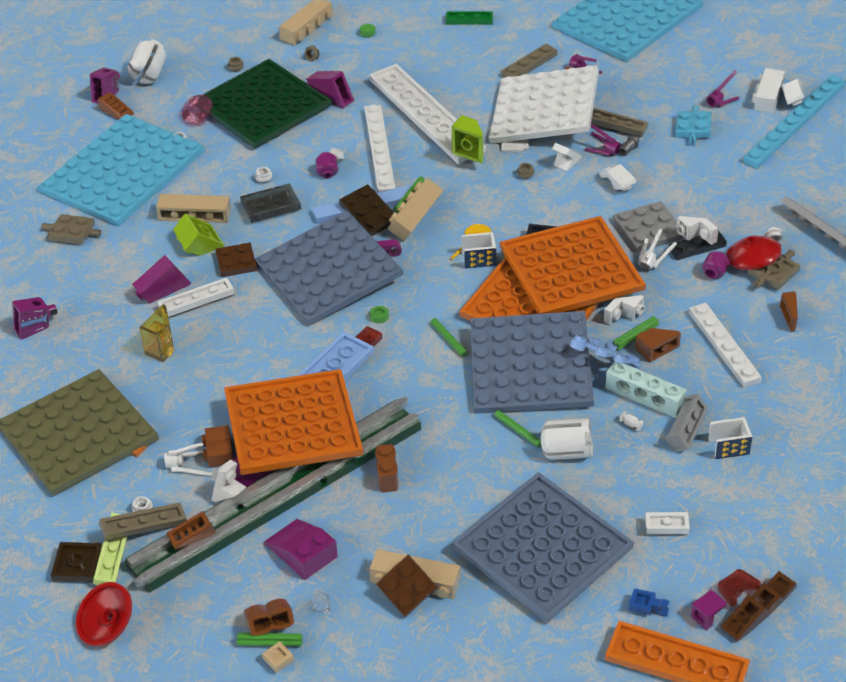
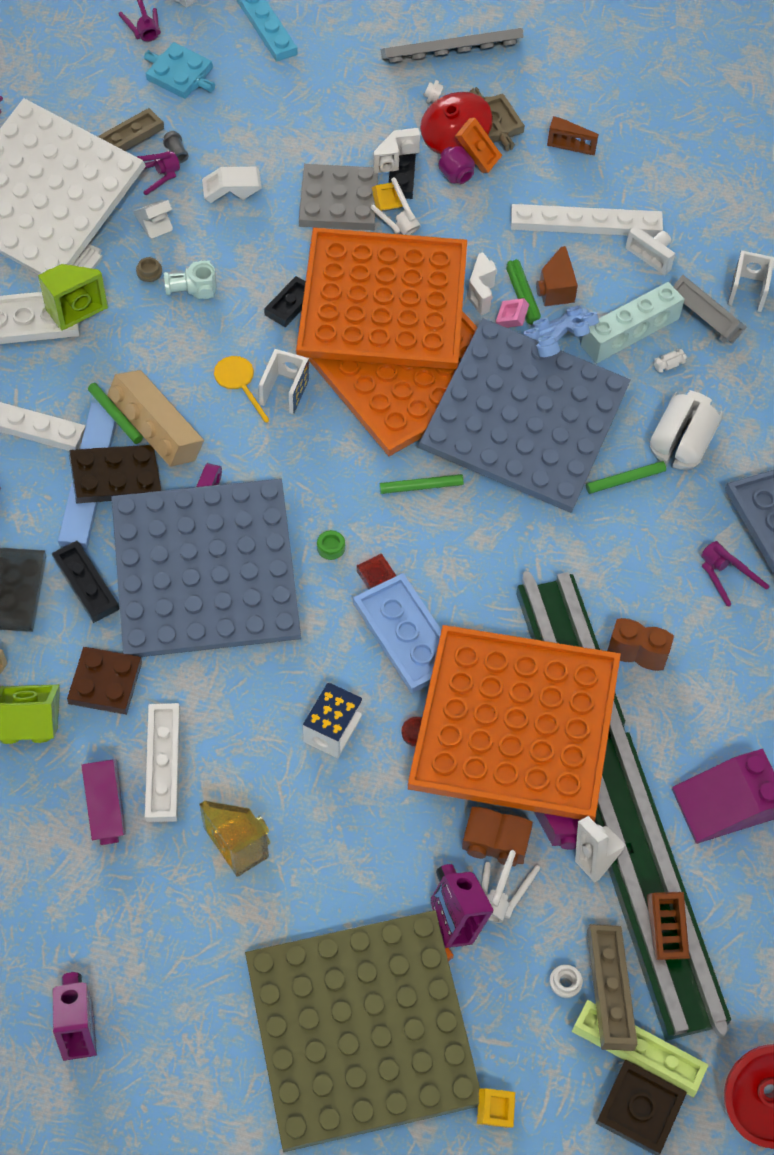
camera: 70 degrees left, 15 degrees up
(50, 497) = (496, 1108): none -> yellow plate
(161, 438) = (460, 906): none -> magenta torso
(255, 351) = (332, 720): none -> piece
(292, 226) = (85, 581): none -> black plate
(478, 490) = (719, 558): none -> magenta plant
(530, 190) = (196, 280): none -> light aqua connector
(610, 332) = (512, 313): none -> bright pink plate
(663, 243) = (386, 197): none -> yellow plate
(721, 380) = (651, 250): none -> white tile
(736, 265) = (478, 145): none -> orange plate

